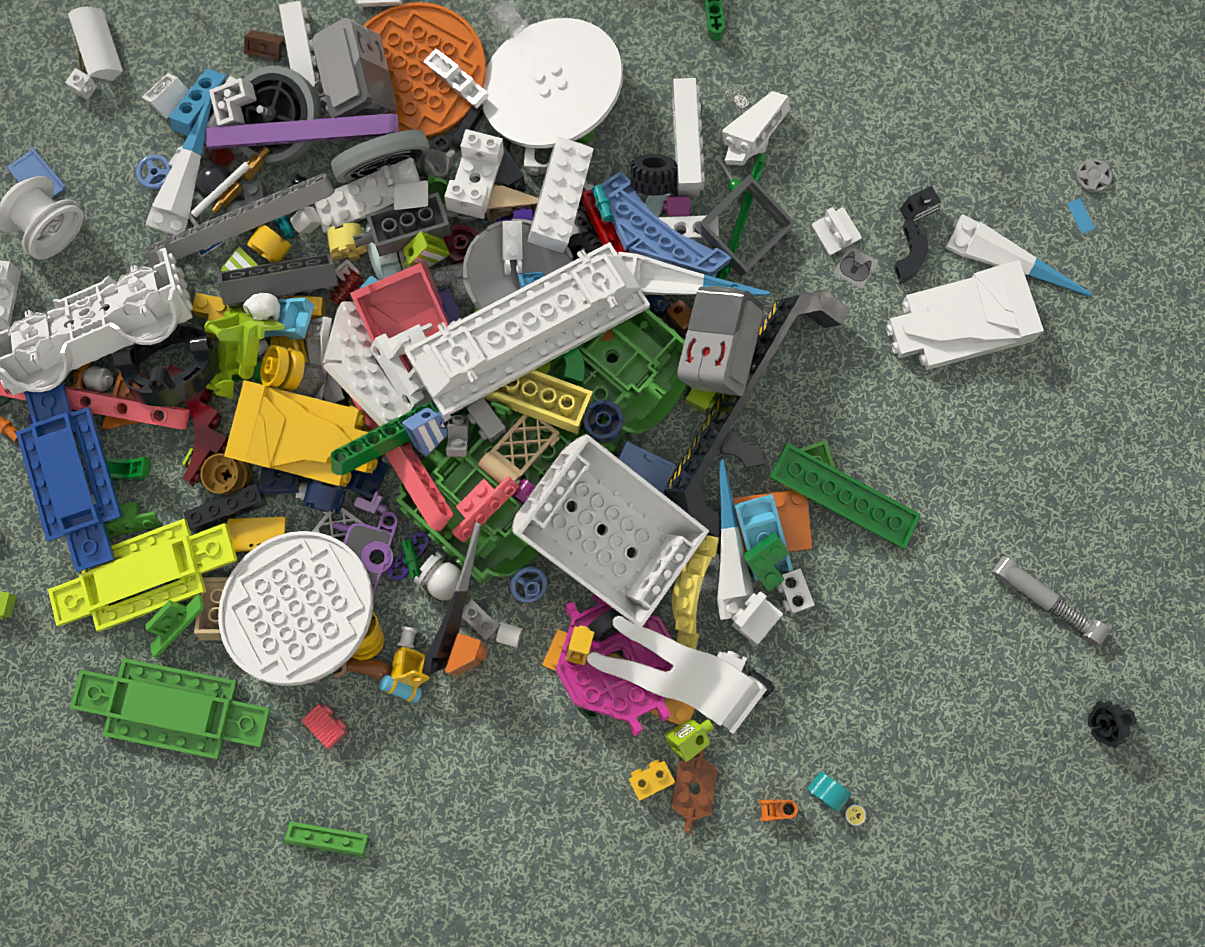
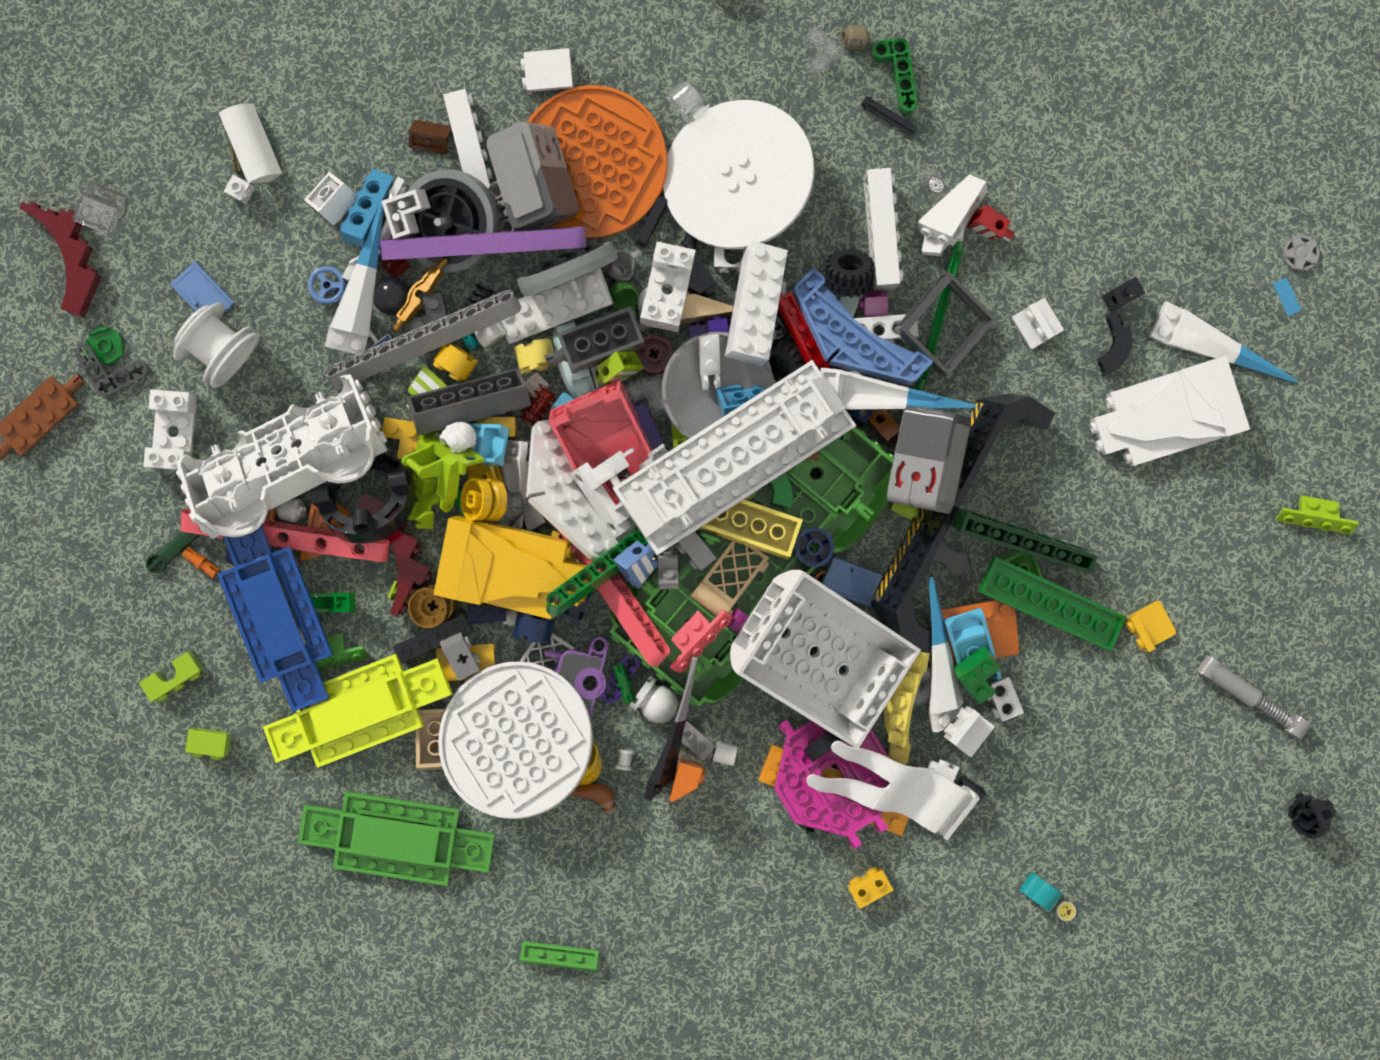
camera: 10 degrees left, 10 degrees up
(171, 622) = (393, 757): bright green bracket -> none
(220, 189) = (401, 306): white bar -> none
(248, 534) = (465, 665): none -> light grey brick
(325, 726) = (550, 849): coral brick -> none
(374, 506) = (582, 630): lavender piece -> none
(405, 675) = (627, 798): yellow piece -> none
(410, 195) = (602, 310): white sticker -> none
(437, 140) = (628, 246): black bush -> none
(456, 78) = (637, 172): white slope -> none
(532, 593) = (743, 704): medium blue piece -> none
(579, 645) = (798, 767): yellow brick -> none
(602, 203) = (799, 310): teal pin -> none
(689, 738) = (905, 847): lime torso -> none
(698, 39) = (889, 116): none -> black axle
(700, 804) = (916, 908): dark orange plate -> none
(733, 182) = (931, 276): hinge -> none
(776, 809) = (990, 910): orange piece -> none
(792, 136) = (991, 224): none -> red torso
(816, 429) = (1023, 540): none -> dark green brick
(855, 267) = (1057, 360): sticker -> none
(945, 525) = (1150, 626): none -> yellow bracket
(1114, 422) = (1318, 514): none -> lime bracket

